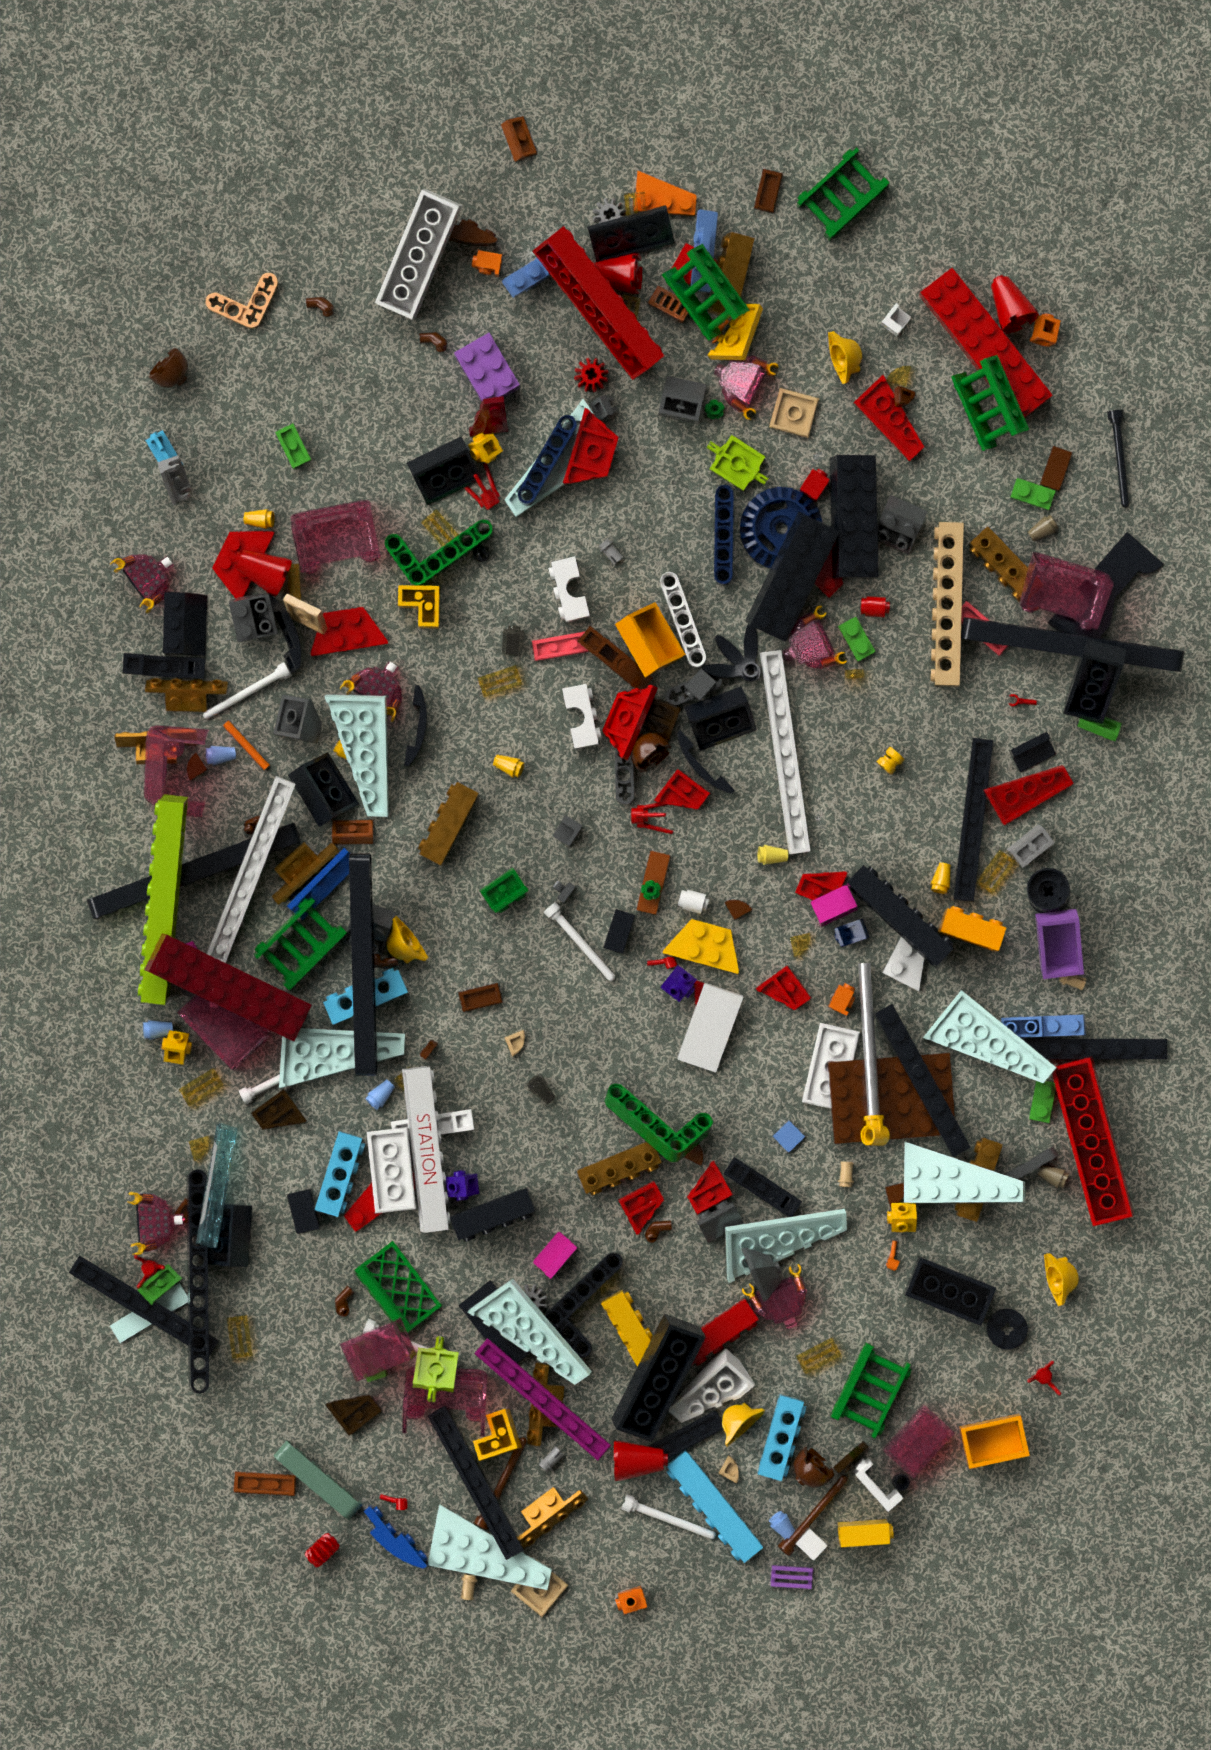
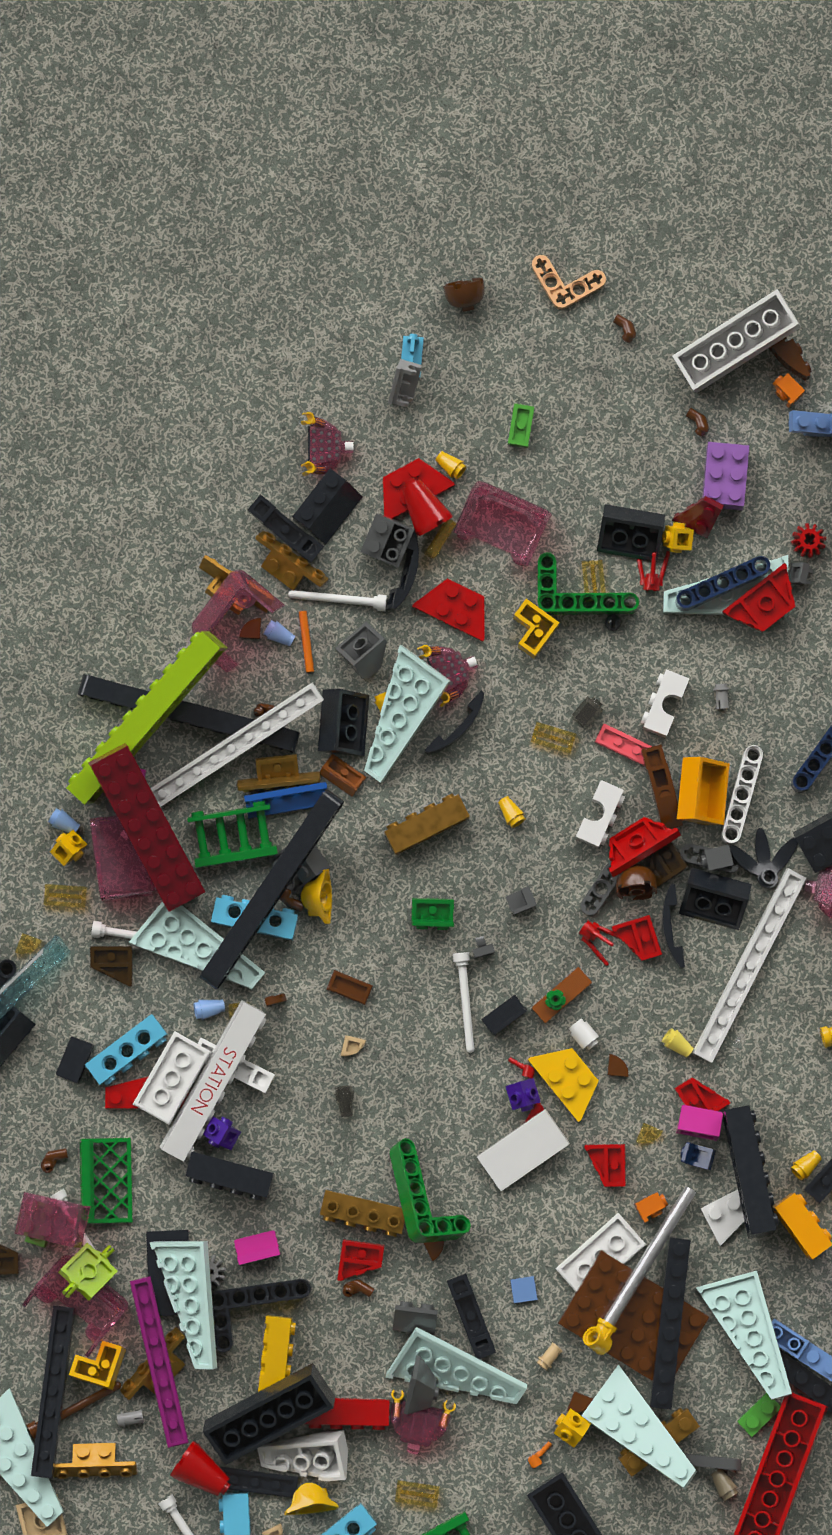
camera: 35 degrees right, 5 degrees down
(305, 614) = (432, 567): tan tile -> none
(709, 1190) = (425, 1287): red wing -> none

